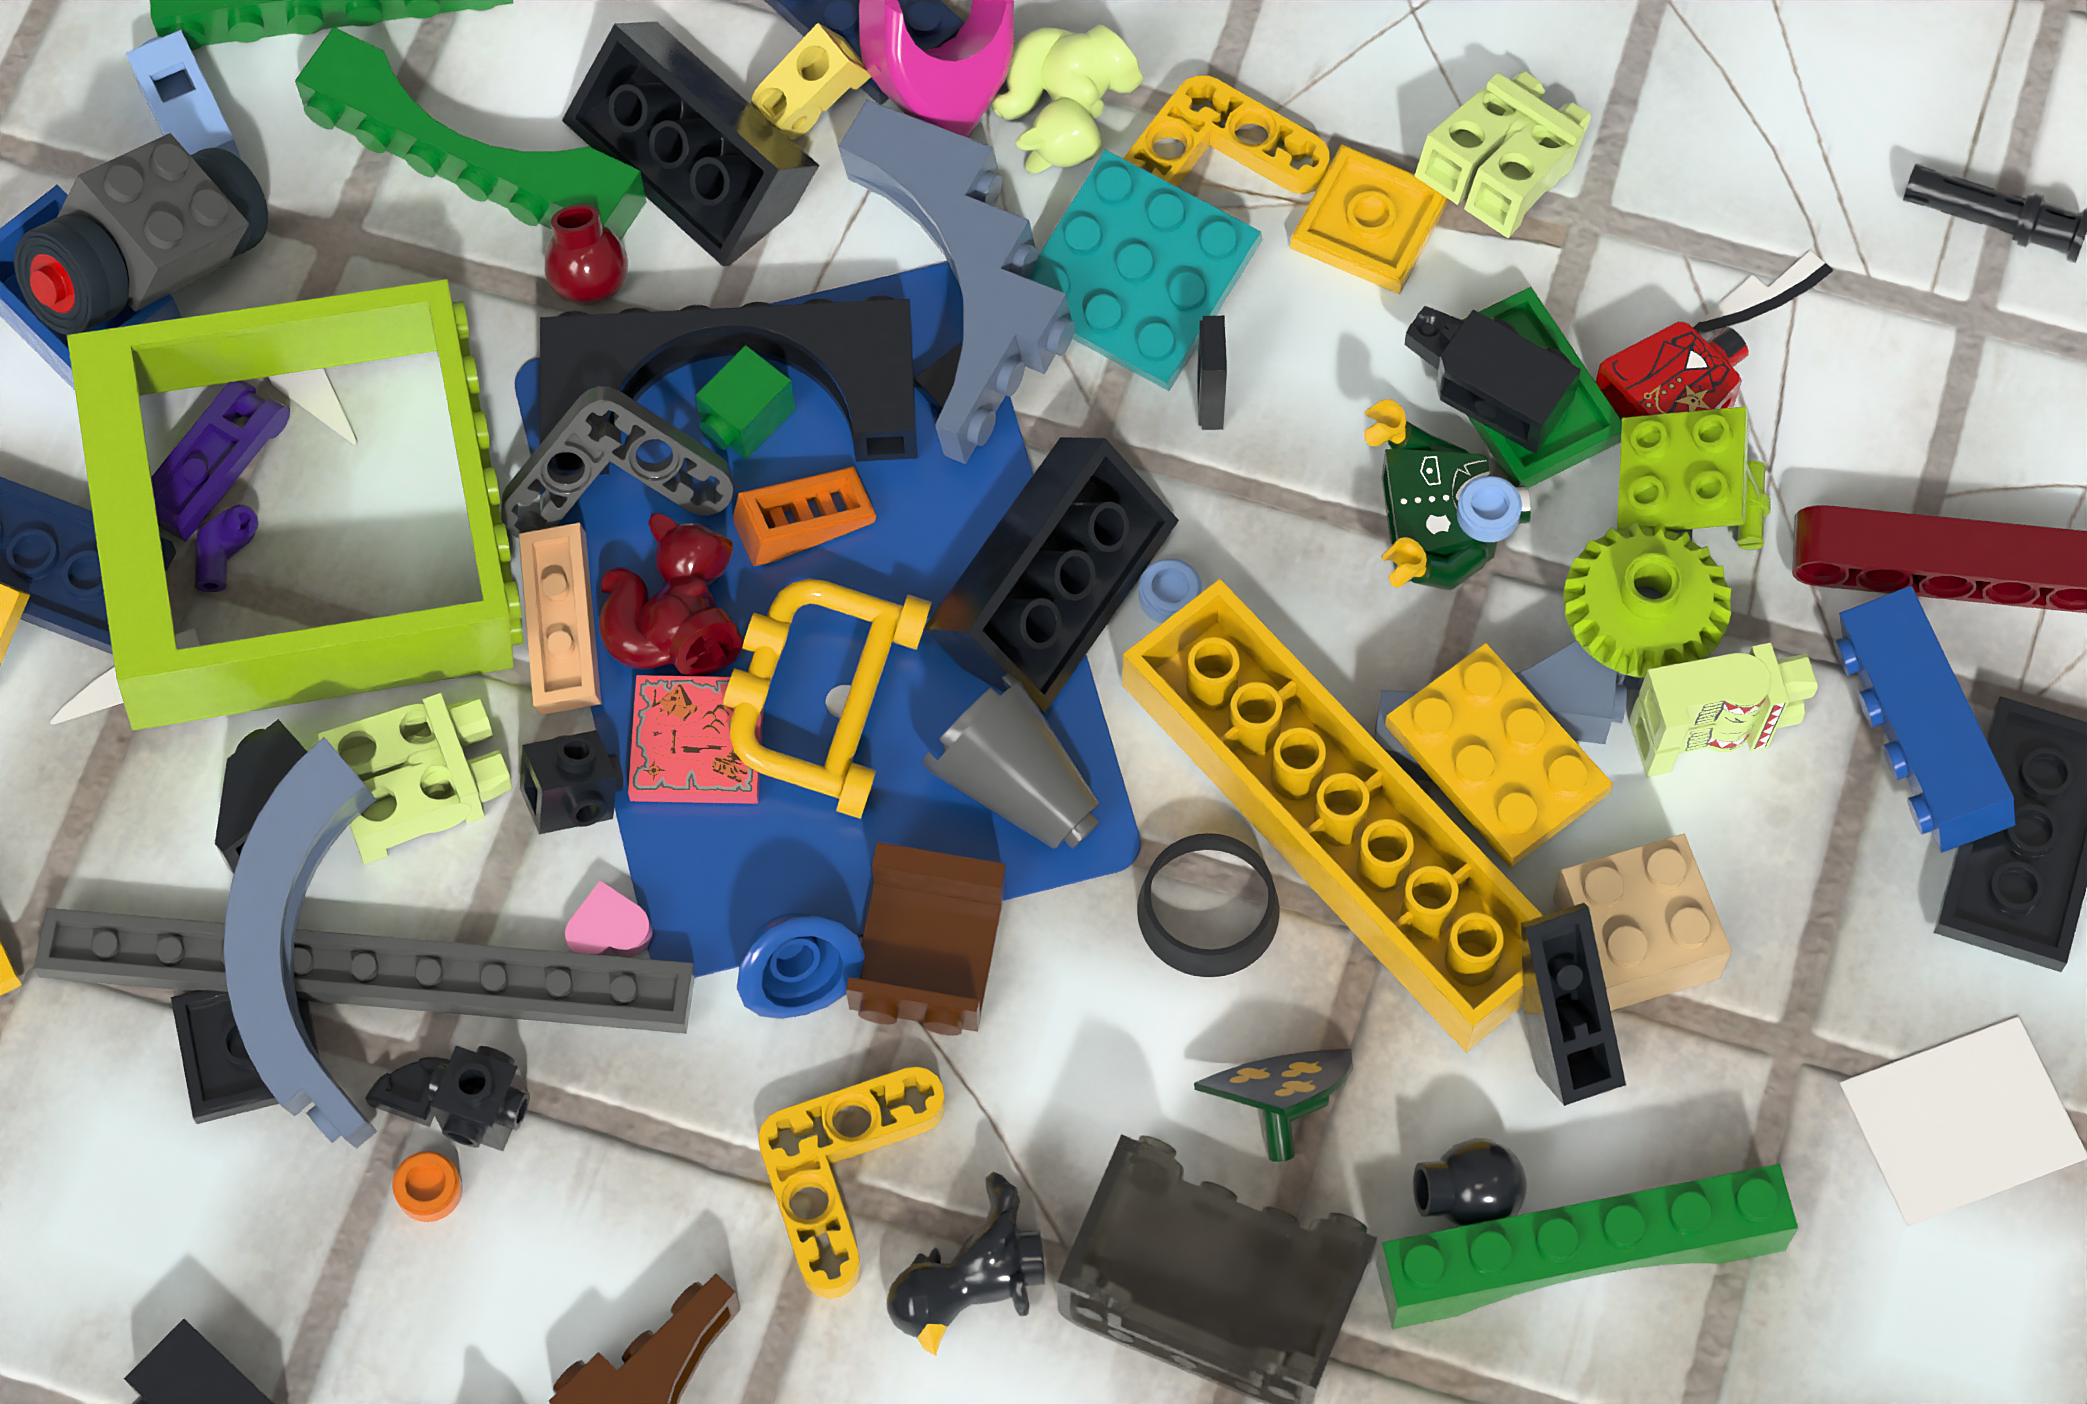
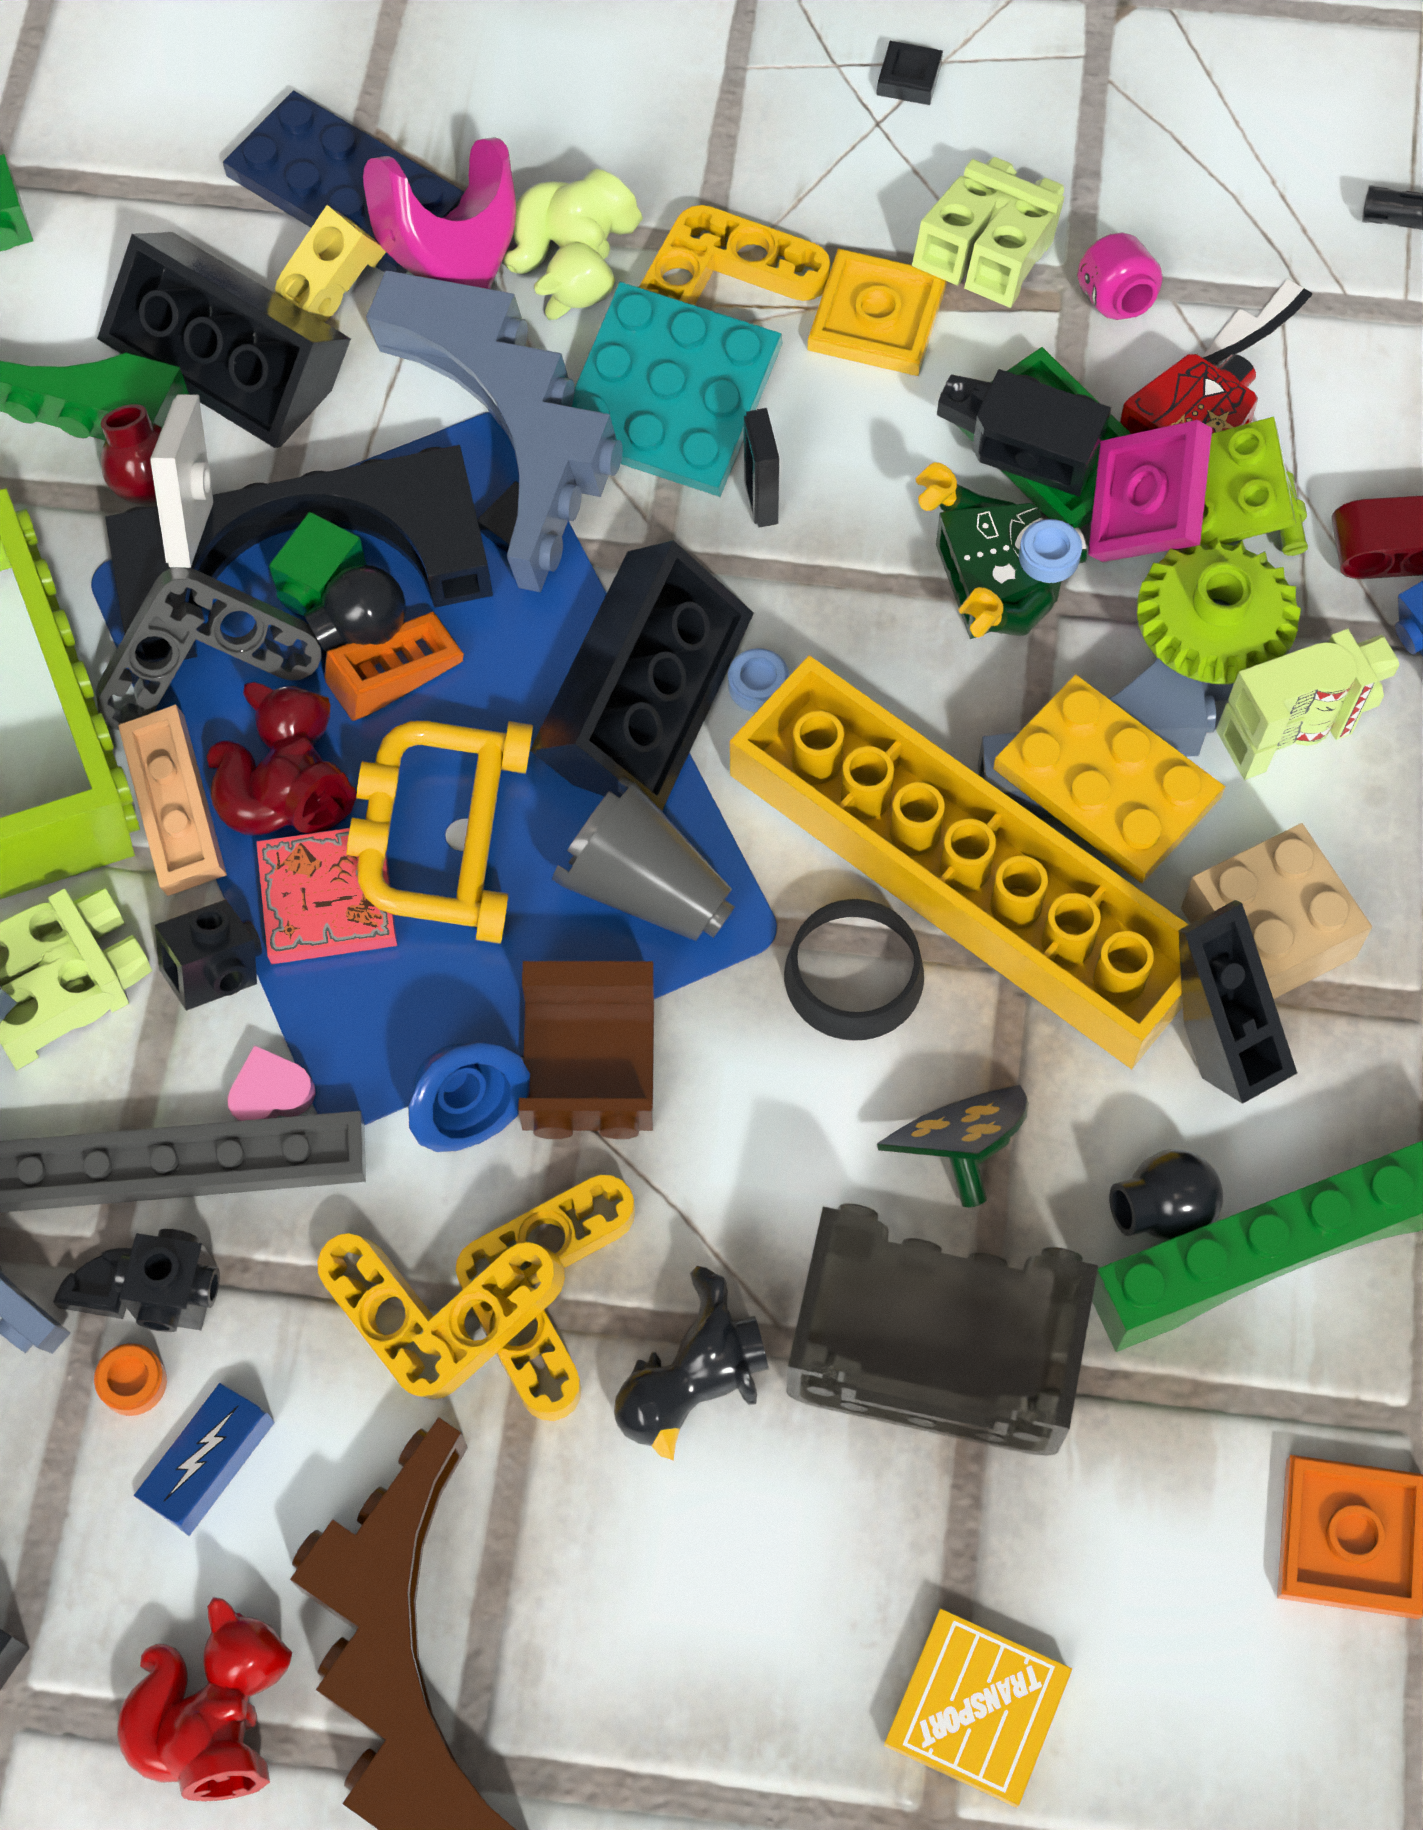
camera: 10 degrees left, 0 degrees up
(486, 1274) = (204, 1458): none -> blue slope
(622, 300) = (182, 481): none -> white plate
(735, 1193) = (446, 1330): none -> yellow beam
(777, 453) = (358, 608): none -> black piece
(1603, 464) = (1150, 491): none -> dark pink plate
(1629, 222) = (1120, 276): none -> dark pink head

